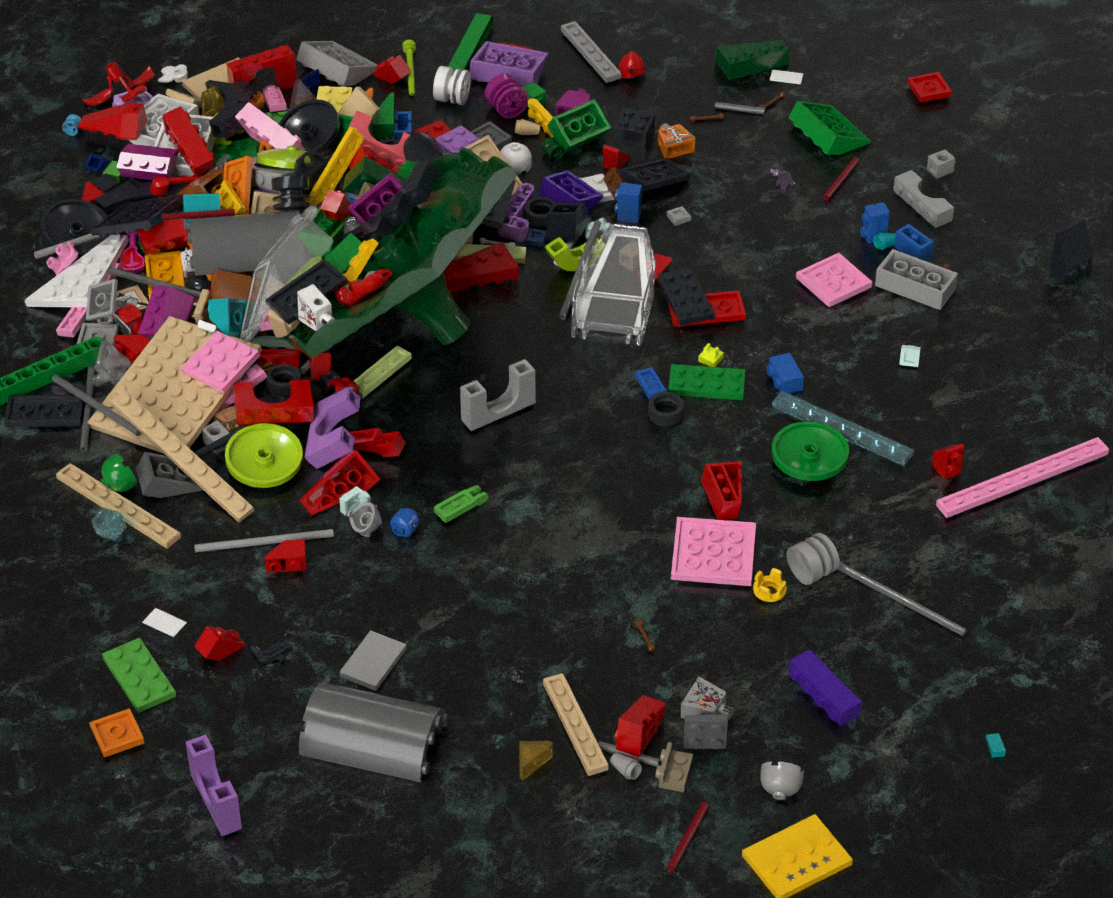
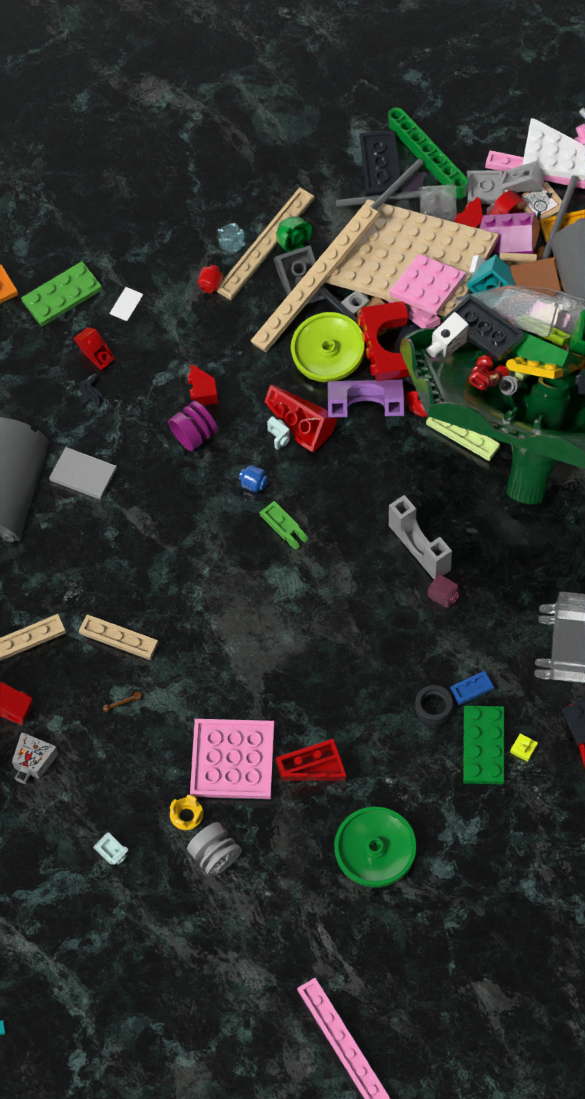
camera: 90 degrees right, 20 degrees up
(155, 545) = (210, 279): none -> red head
(263, 540) = (228, 367): light grey piece -> none
(339, 558) = (192, 425): none -> magenta wheel
(365, 518) = (250, 444): light grey helmet -> none
(381, 443) = (358, 440): red slope -> none
(549, 394) = (443, 591): none -> clear pink brick
(573, 633) = (118, 637): none -> tan plate
(785, 373) = (498, 821): blue brick -> none
(811, 640) = (111, 849): none -> light aqua bracket
(824, 688) = (53, 865): dark purple brick -> none
(850, 430) = (424, 884): clear light blue tile -> none
(902, 599) = (183, 937): dark grey piece -> none
(909, 355) = (543, 954): light aqua tile -> none
(948, 460) = (373, 990): red slope -> none

